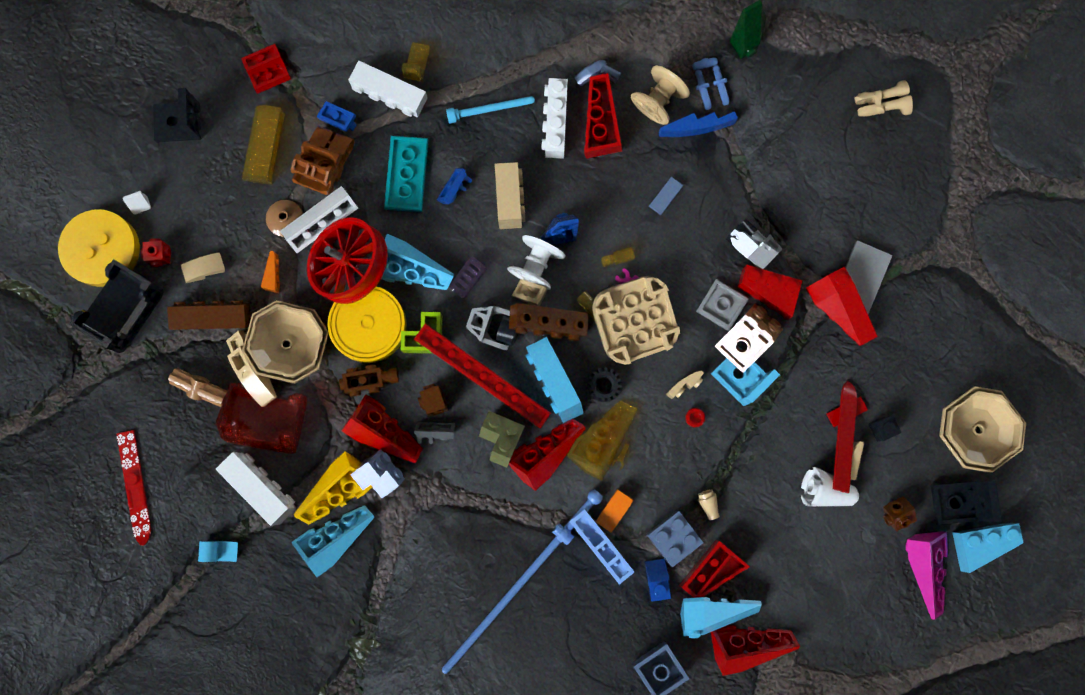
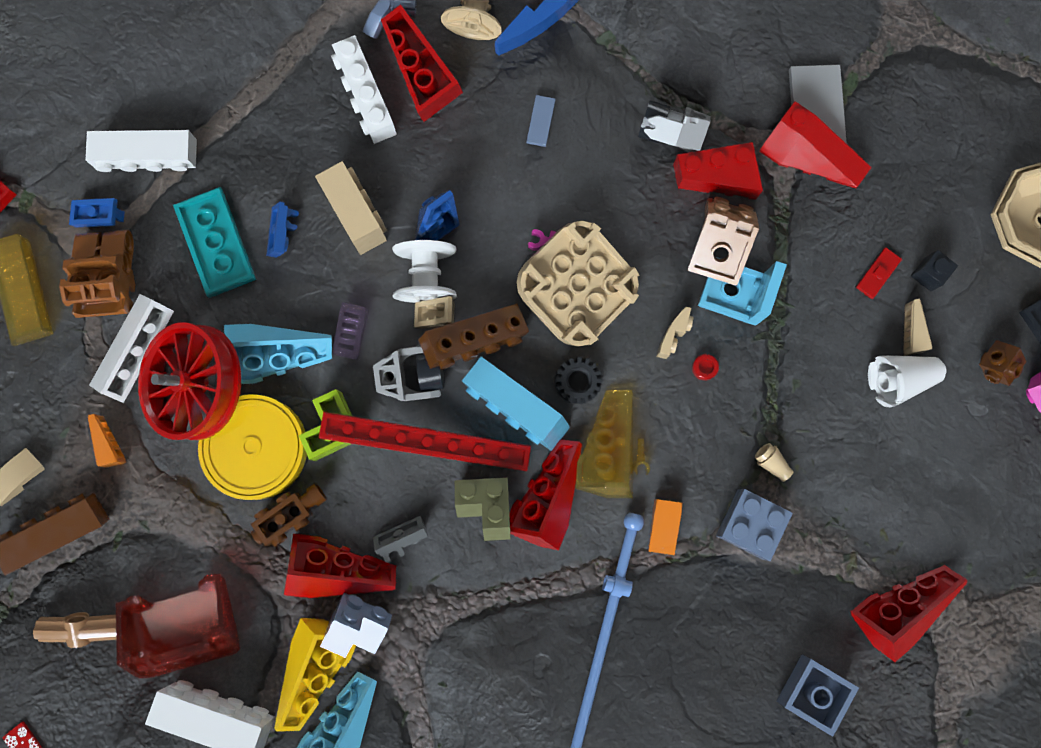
camera: 25 degrees left, 0 degrees up
(257, 386) = (133, 578): tan slope -> none
(281, 207) = (73, 365): medium nougat dish -> none
(283, 323) = (134, 516): tan rock -> none
(417, 61) = (162, 101): clear yellow bracket -> none
(432, 400) = (379, 501): reddish brown brick -> none
(455, 114) = (239, 143): medium azure piece -> none
(586, 302) = (509, 292): clear yellow bar -> none
(602, 546) = (672, 578): light blue slope -> none
(618, 257) = (520, 219): clear yellow bar -> none
(658, 580) = (758, 584): blue slope -> none
(704, 616) = (835, 601): medium azure wedge -> none
(712, 570) = (818, 540): red wedge -> none
(722, 304) = (671, 217): light grey tile -> none
(845, 438) = (896, 305): red piece -> none

